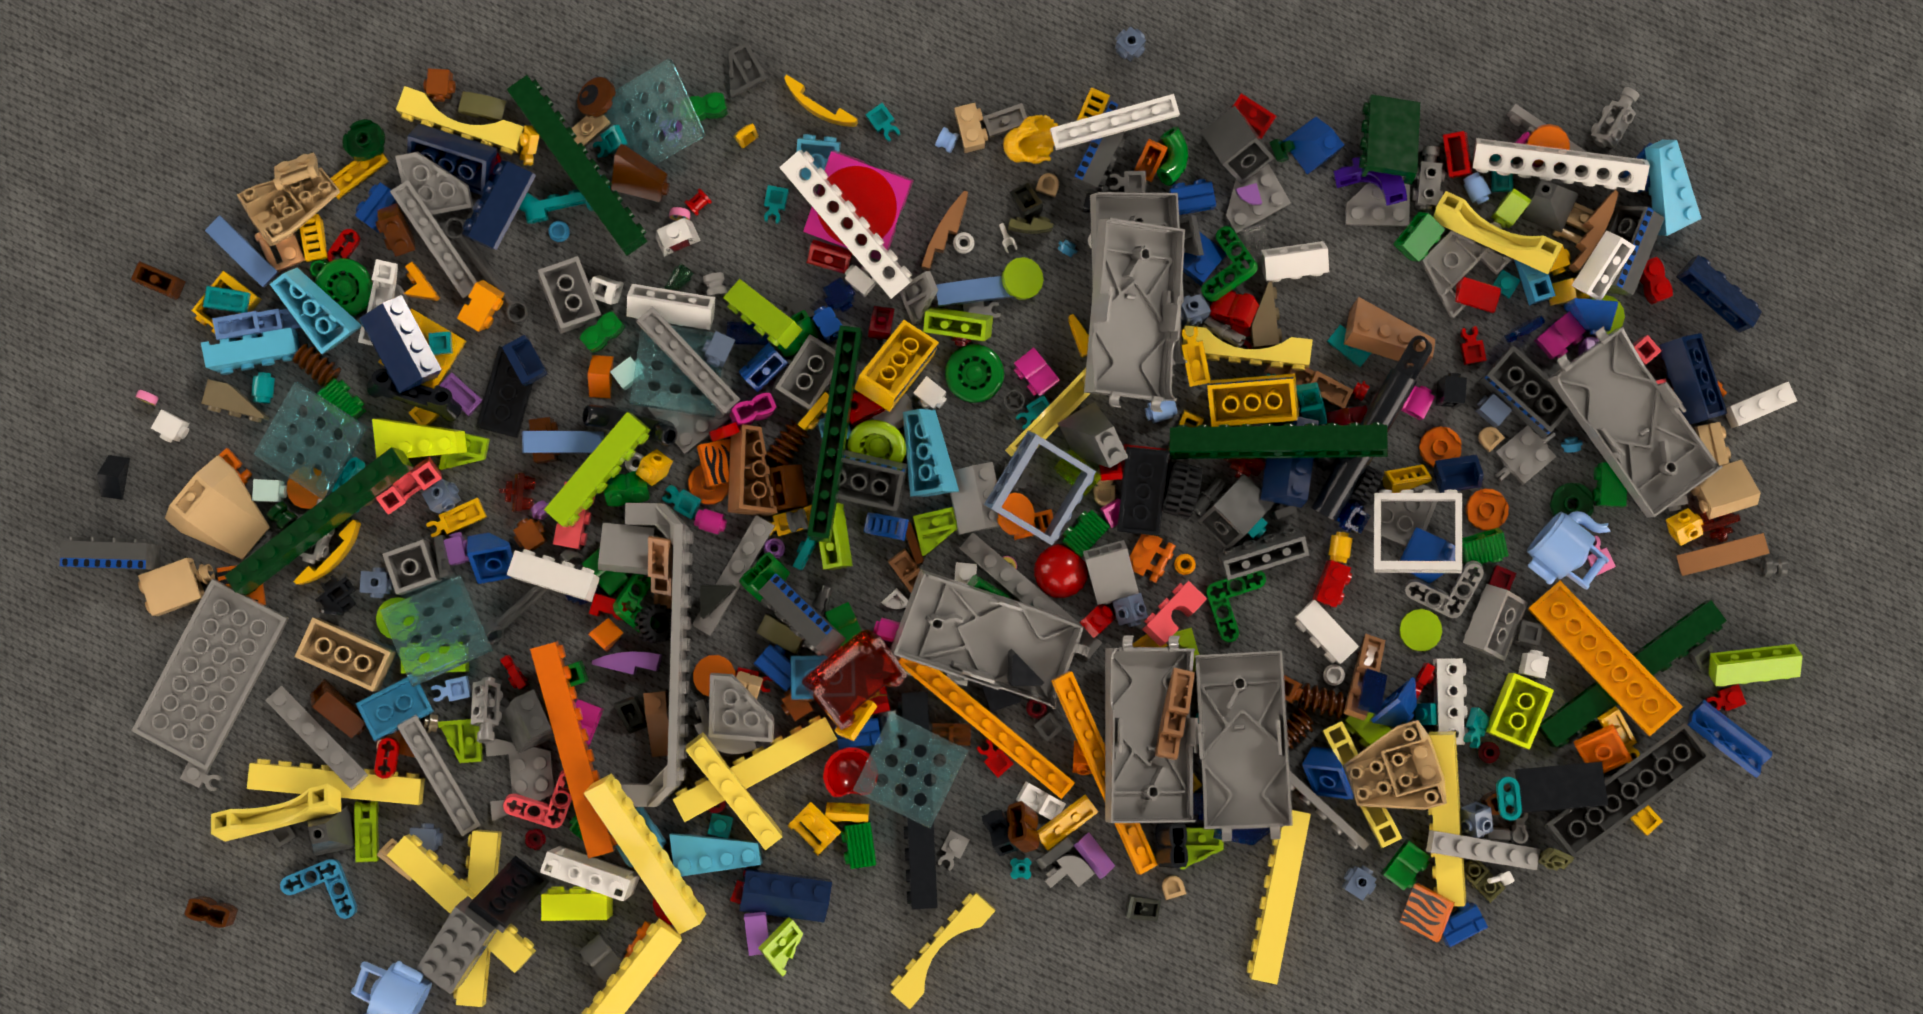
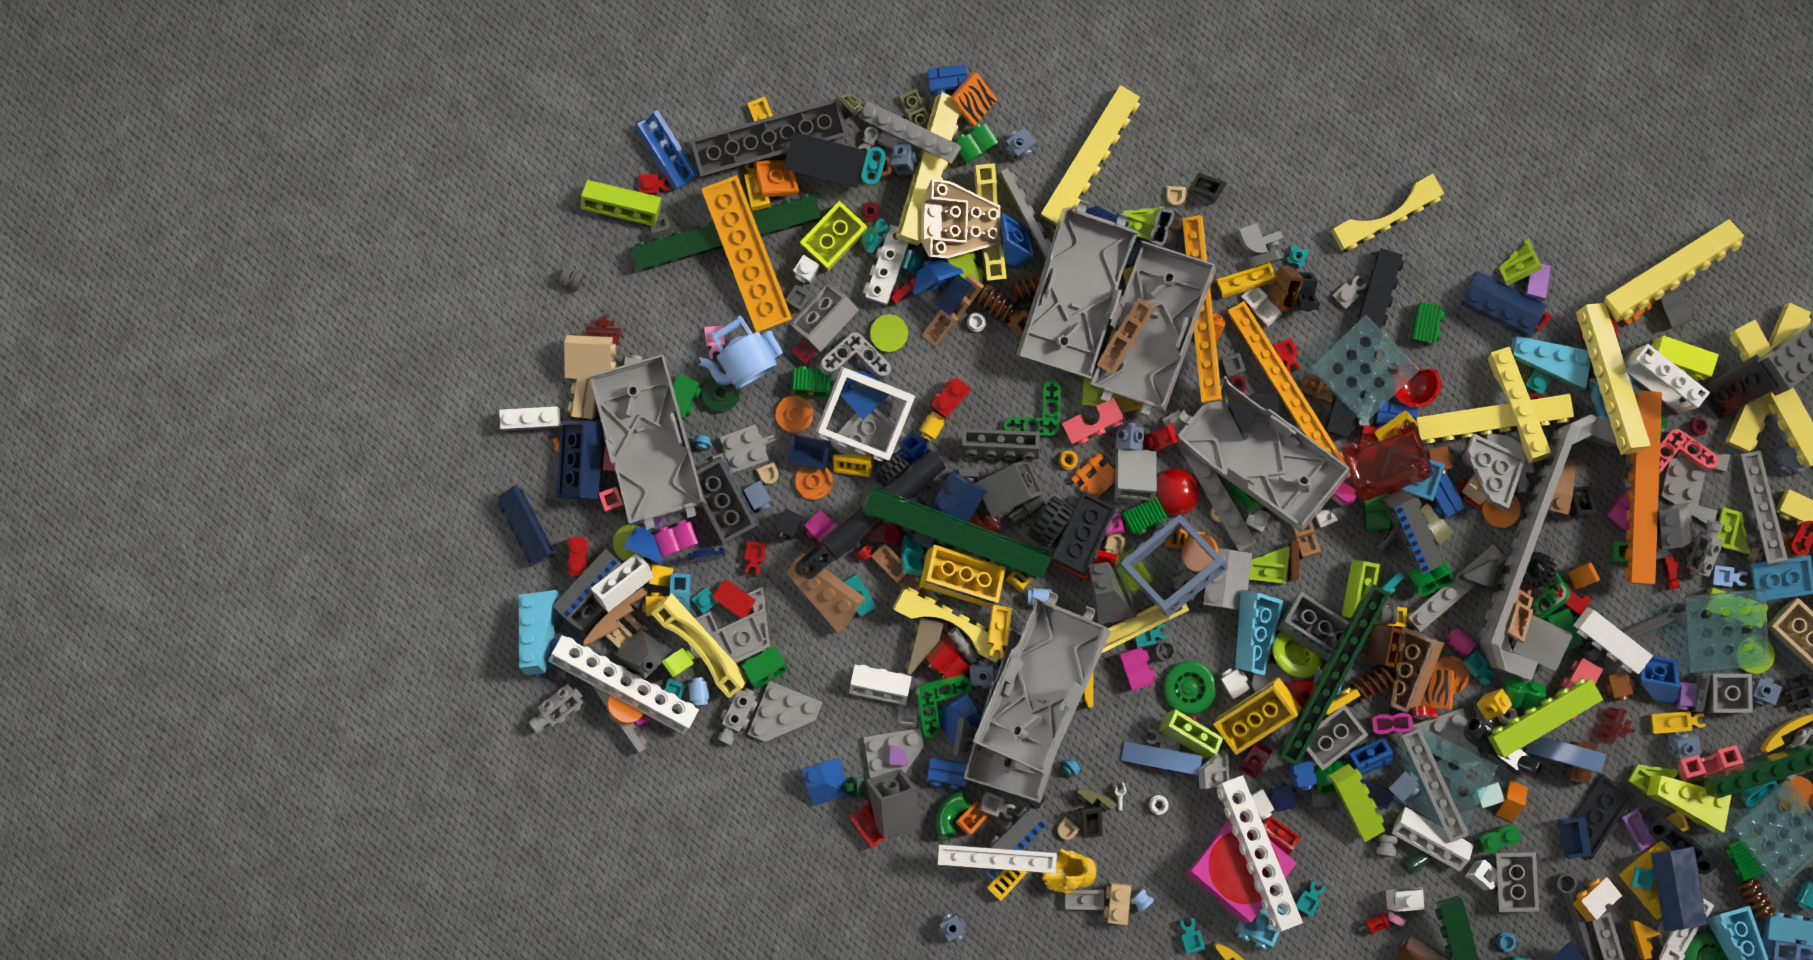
camera: 160 degrees left, 0 degrees up
(538, 510) = (1603, 705): medium lavender plate -> none
(629, 661) = (1570, 546): medium lavender slope -> none
(774, 542) = (1412, 604): medium lavender plate -> none
(817, 824) = (1457, 353): yellow plate -> none
(847, 812) = (1428, 354): yellow plate -> none
(874, 523) = (1313, 583): blue slope -> none
(948, 225) = (1165, 825): medium nougat slope -> none
(1022, 278) = (1119, 754): lime tile -> none
(1094, 855) = (1232, 244): medium lavender tile -> none
(1258, 529) = (996, 466): teal plate -> none
(1325, 632) = (971, 359): white brick -> none
(1390, 137) = (759, 761): dark green panel -> none
(1390, 185) = (783, 738): dark purple arch -> none
(1458, 154) = (705, 726): red brick -> none
(1505, 878) = (895, 104): white hand -> none
(1685, 526) = (634, 339): yellow brick -> none
(1722, 554) = (610, 304): medium nougat slope -> none

